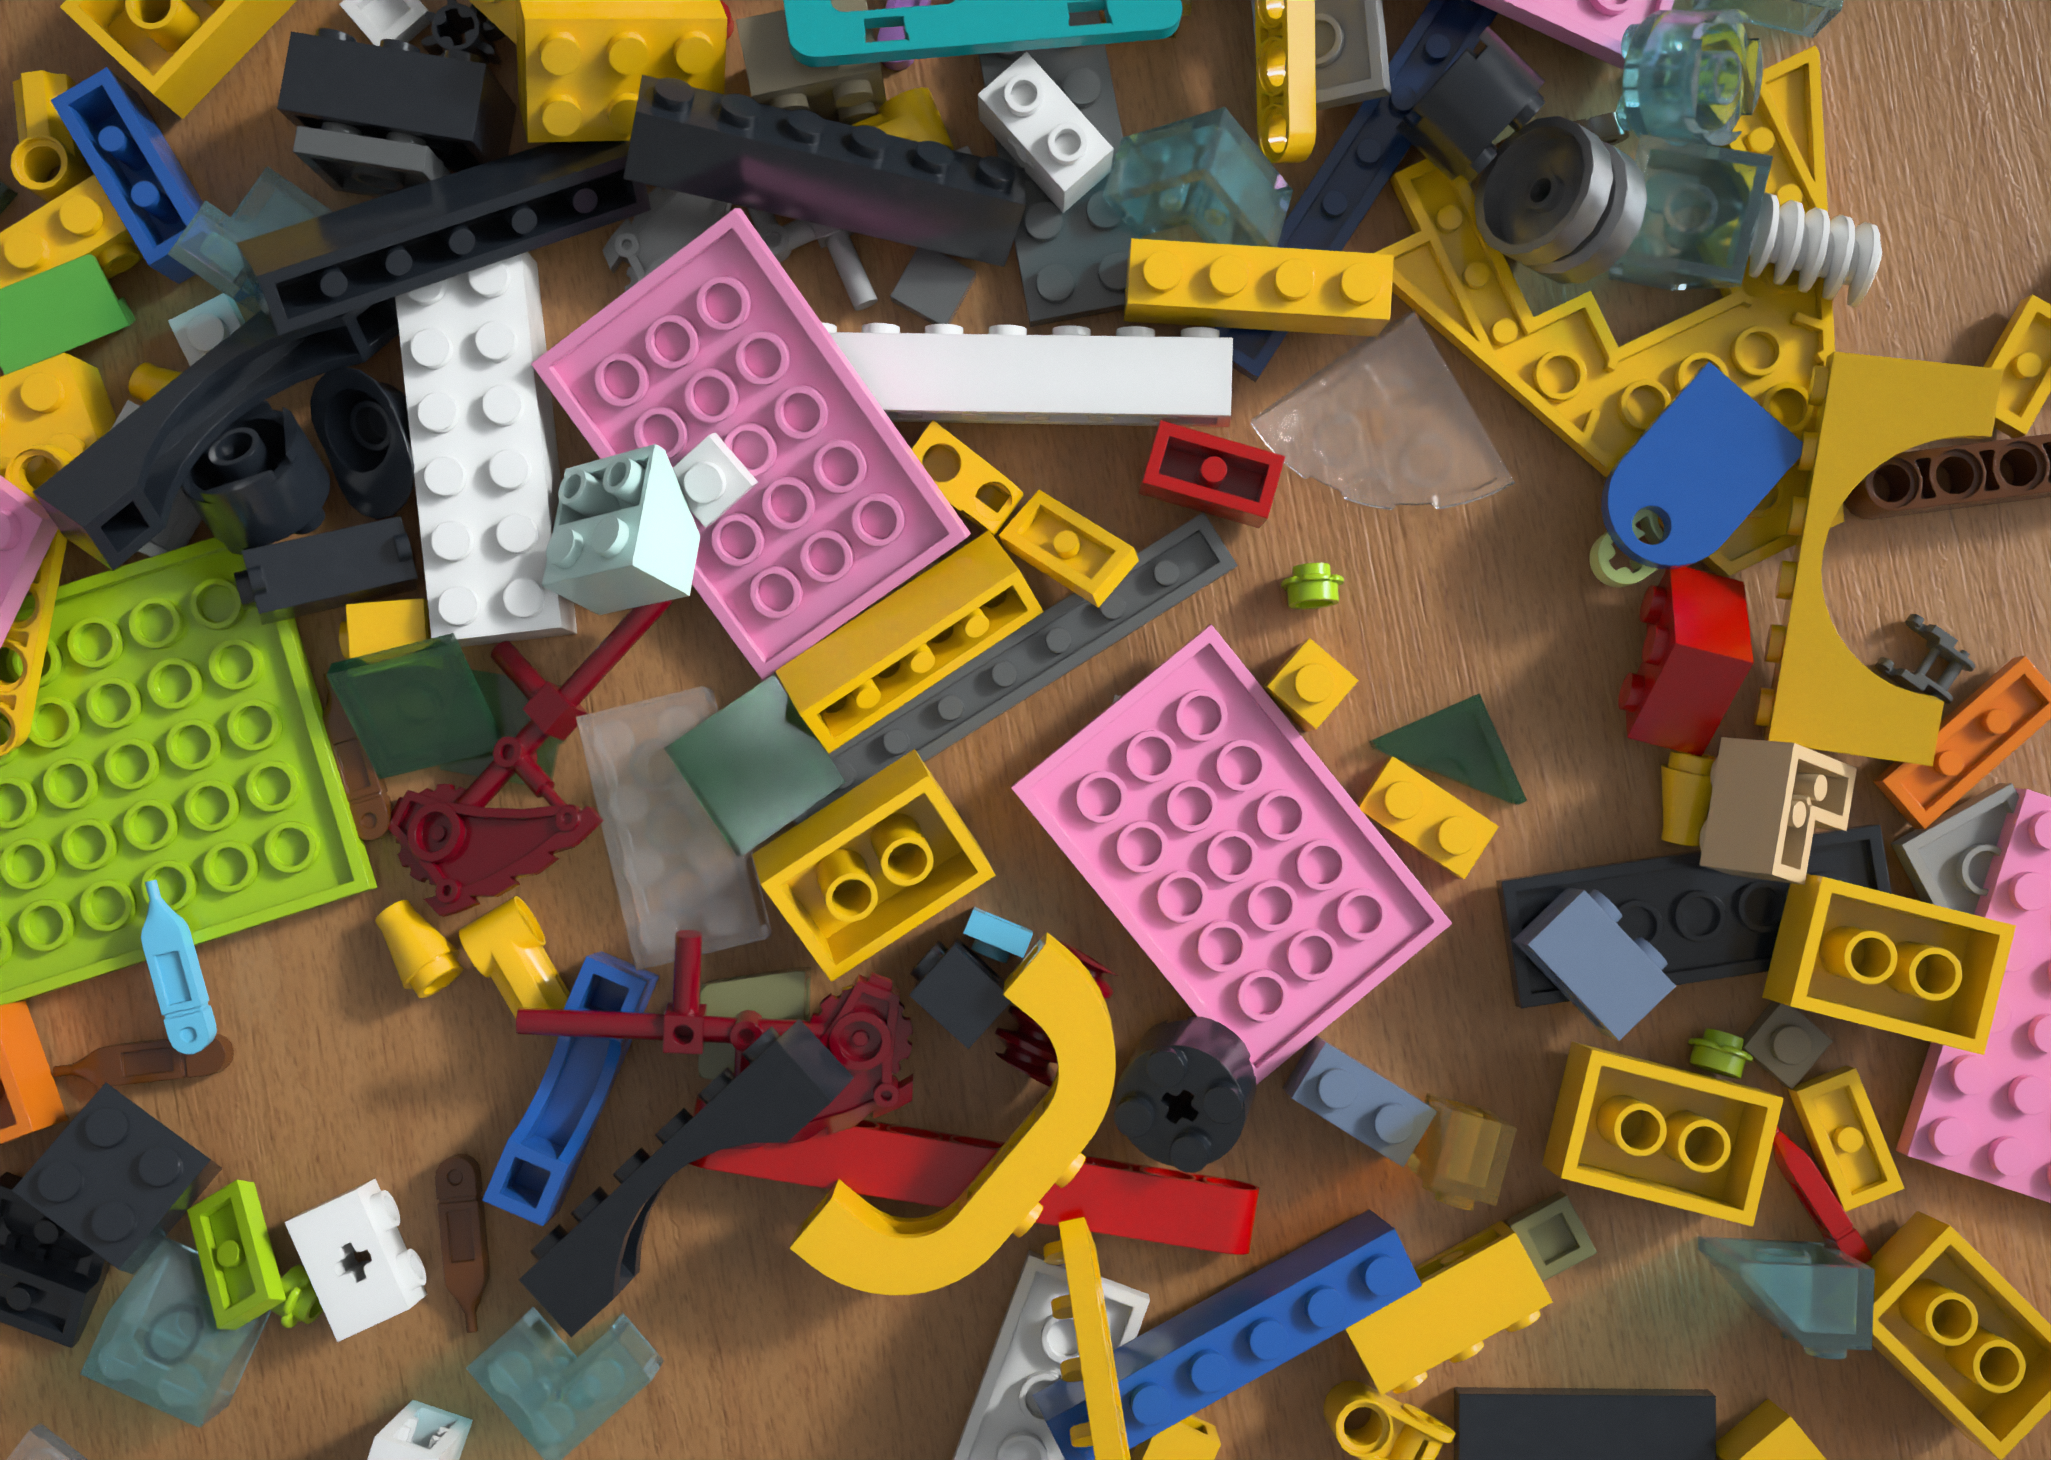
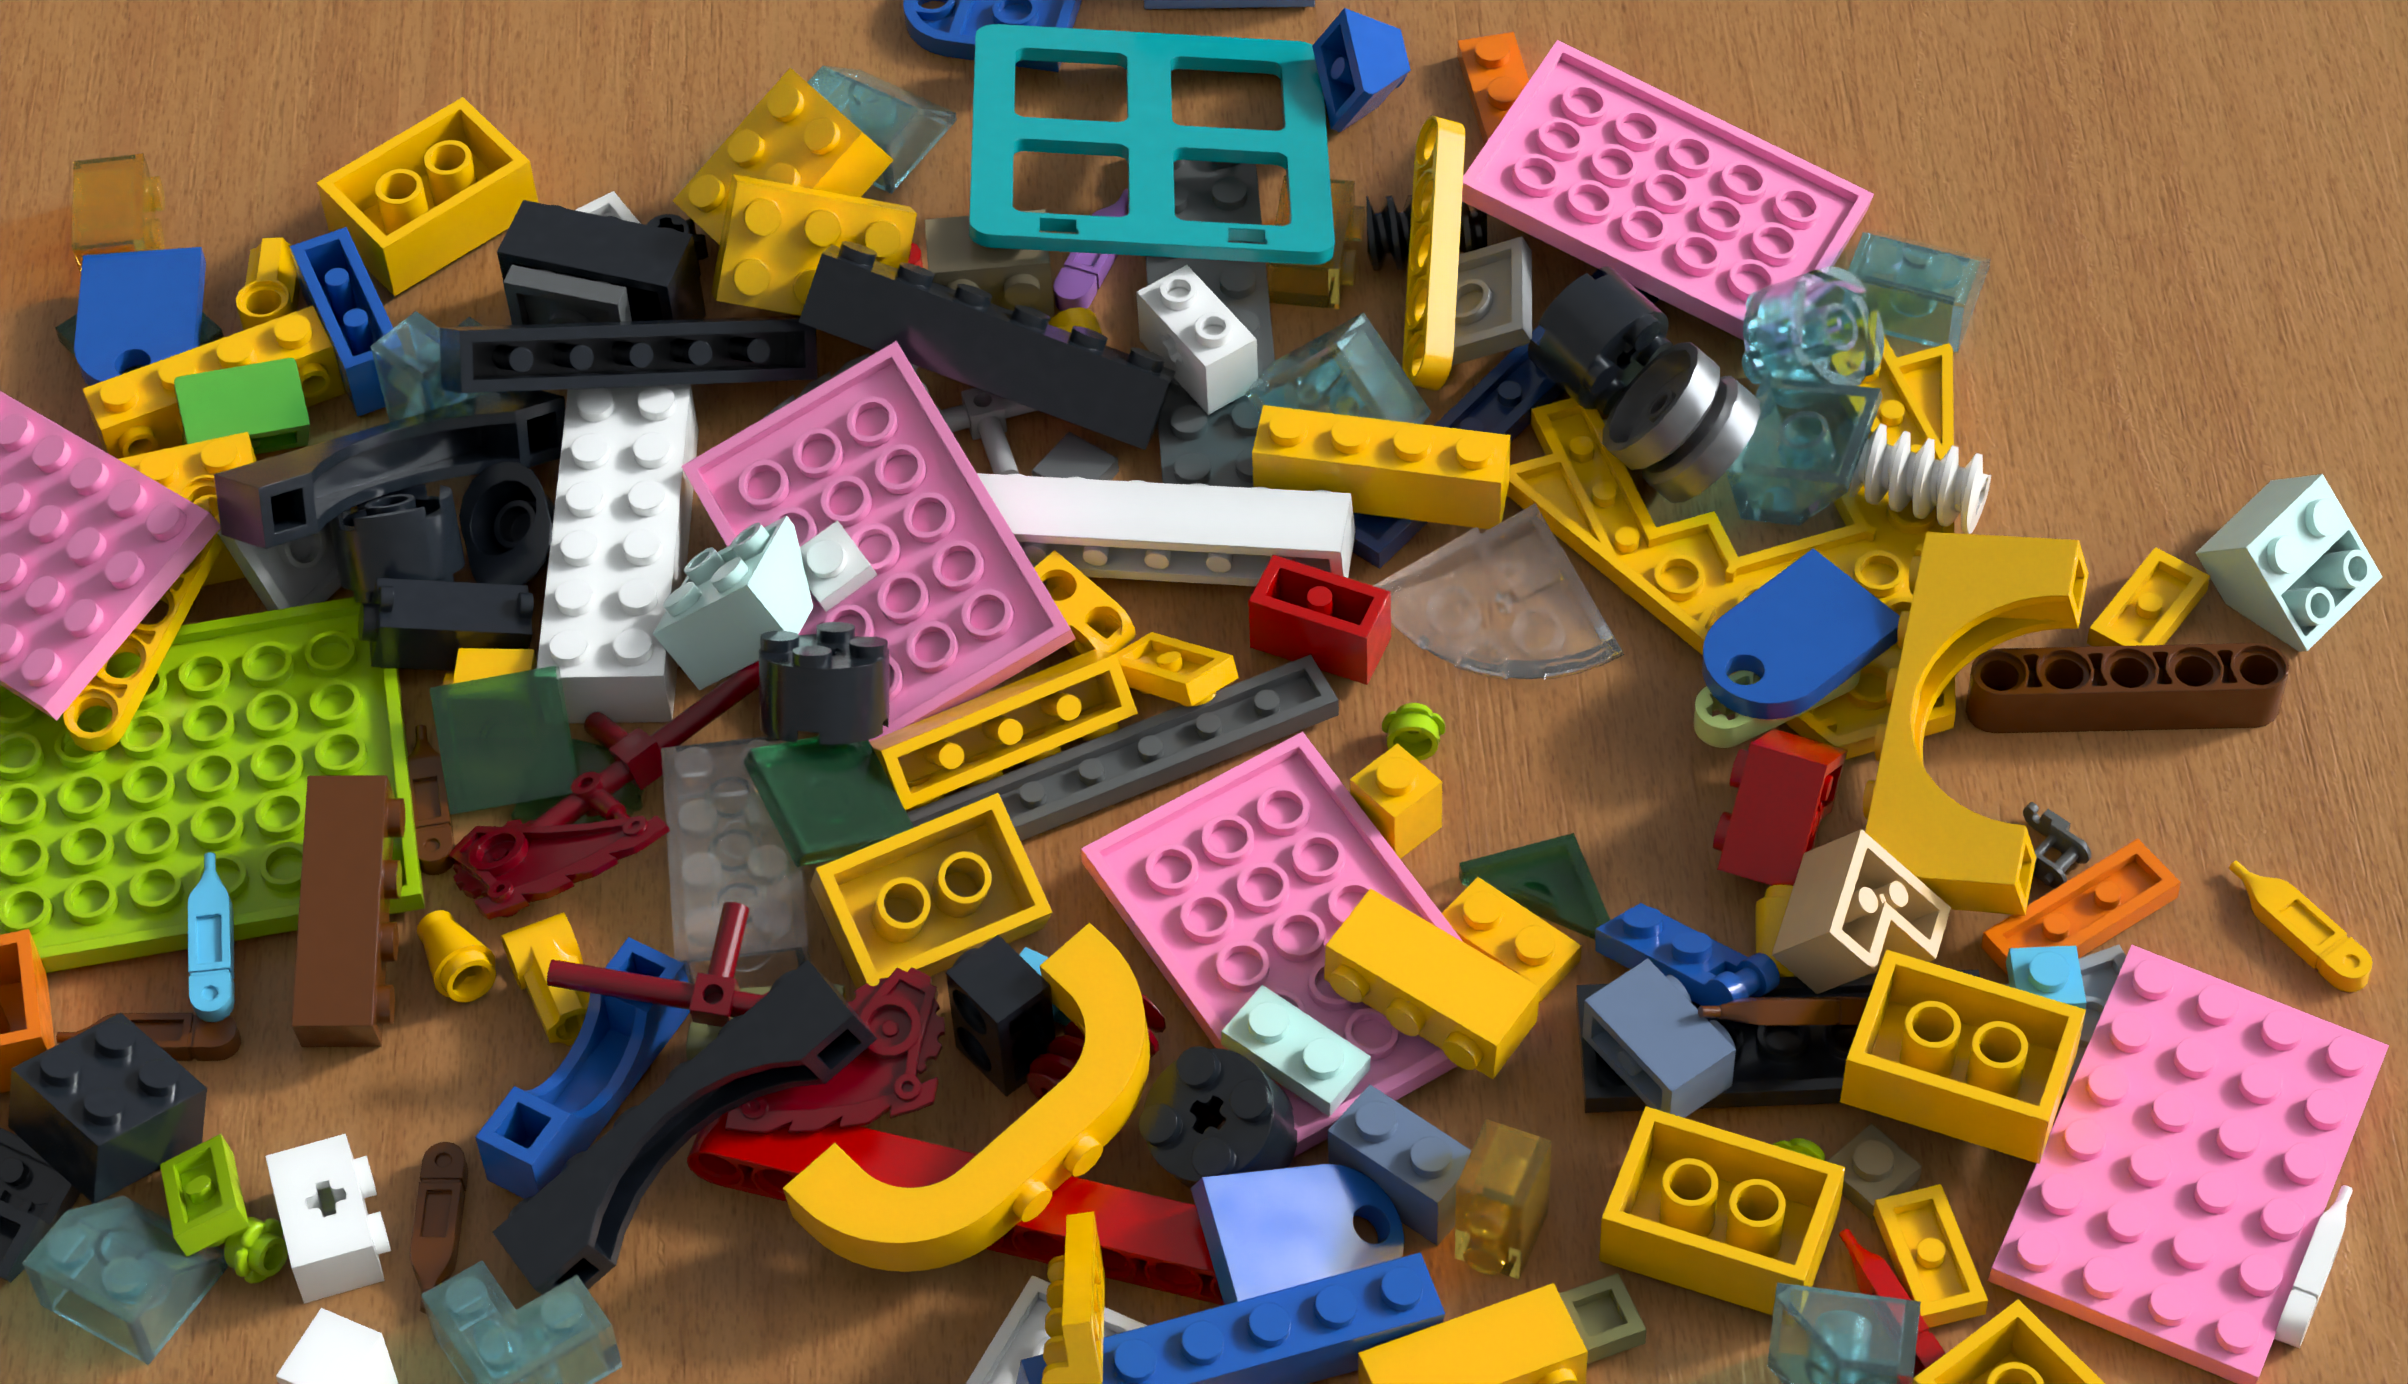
camera: 15 degrees right, 35 degrees down
(300, 935) = (345, 911): none -> reddish brown brick
(729, 647) = (823, 684): none -> black brick
(1246, 996) = (1296, 1050): none -> light aqua plate
(1268, 1206) = (1292, 1226): none -> tile
(1371, 923) = (1431, 984): none -> yellow brick
(1606, 848) = (1703, 966): none -> blue plate
(1723, 920) = (1789, 1010): none -> reddish brown piece
(1949, 844) = (2047, 973): none -> medium azure plate

